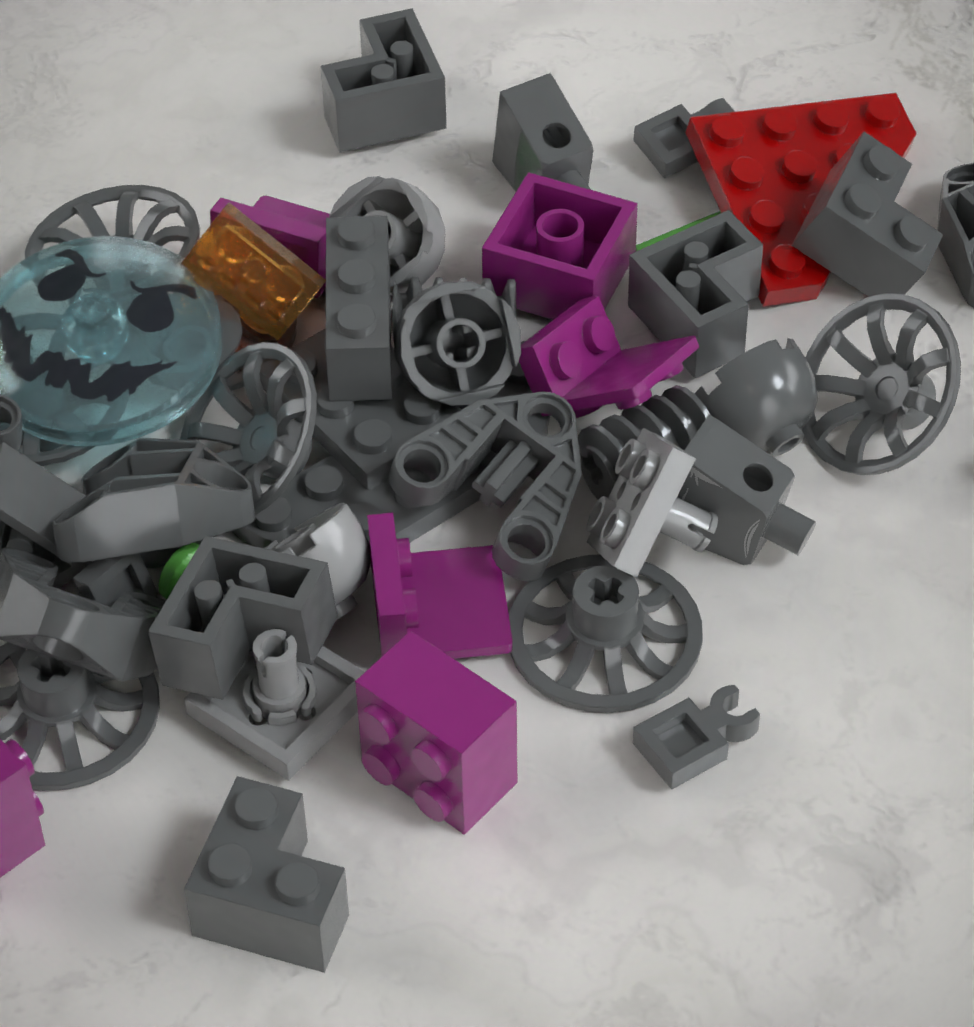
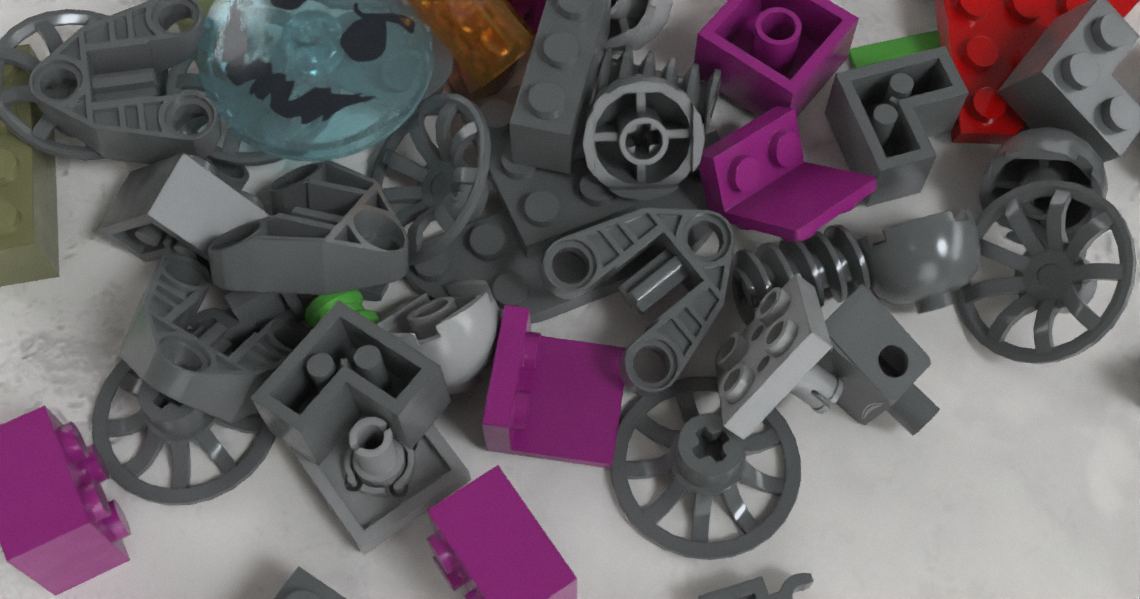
camera: 15 degrees right, 15 degrees up
(842, 286) = (1044, 156): none -> dark grey cylinder

